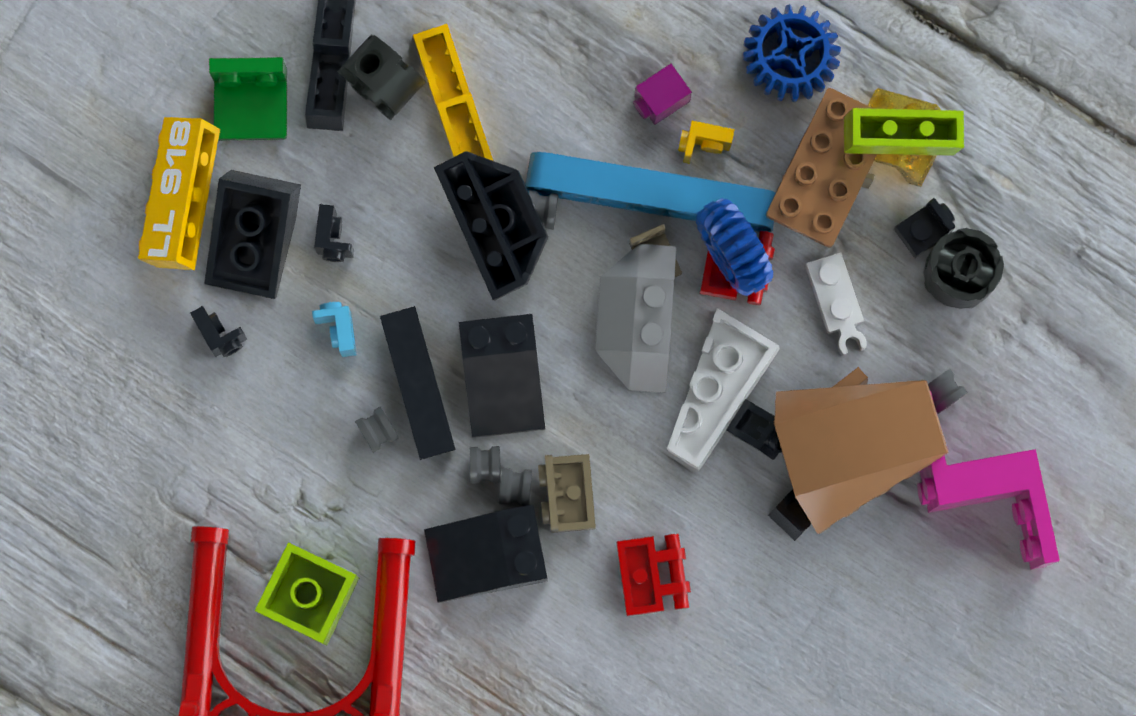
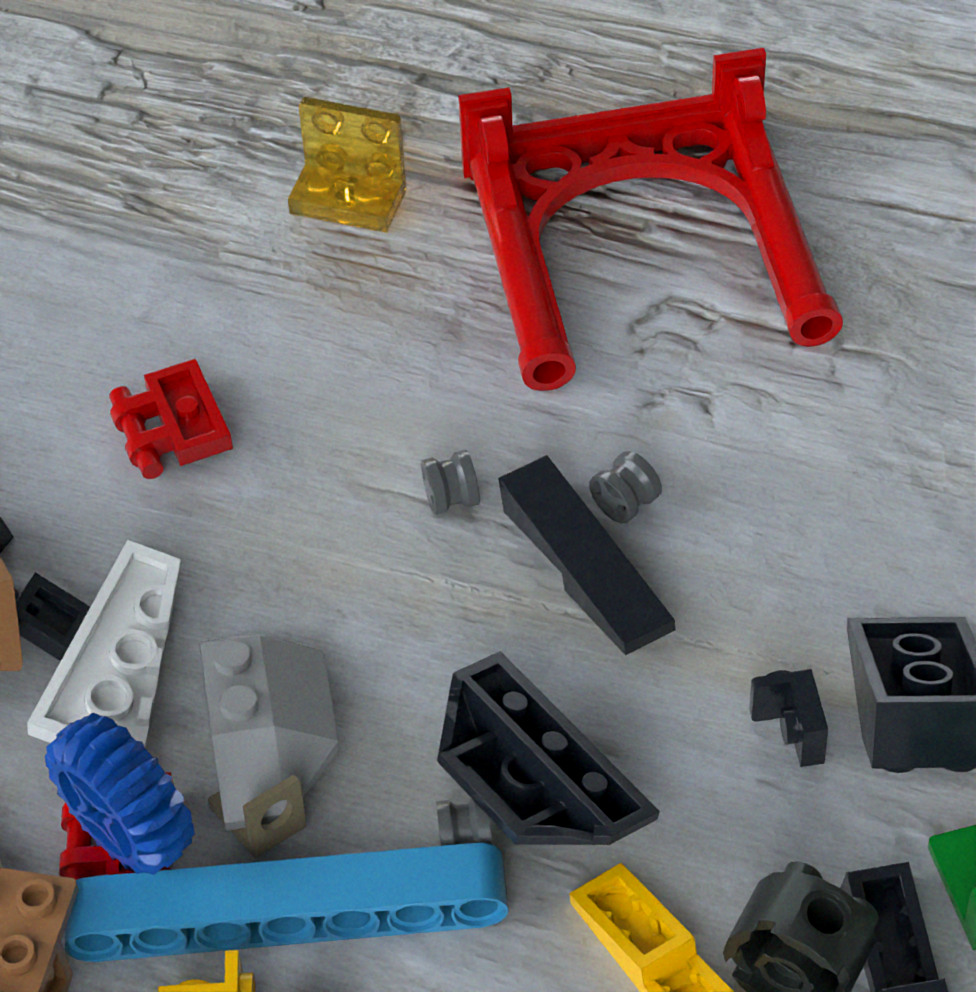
camera: 170 degrees right, 30 degrees down
(211, 328) = (918, 541): black bracket -> none
(307, 593) = (649, 278): lime brick -> none
(342, 333) = (728, 601): medium azure bracket -> none
(486, 554) = (409, 389): black slope -> none
(502, 375) = (463, 602): black slope -> none
(515, 487) = (396, 466): dark grey wheel -> none
(569, 493) = (319, 477): dark tan bracket -> none

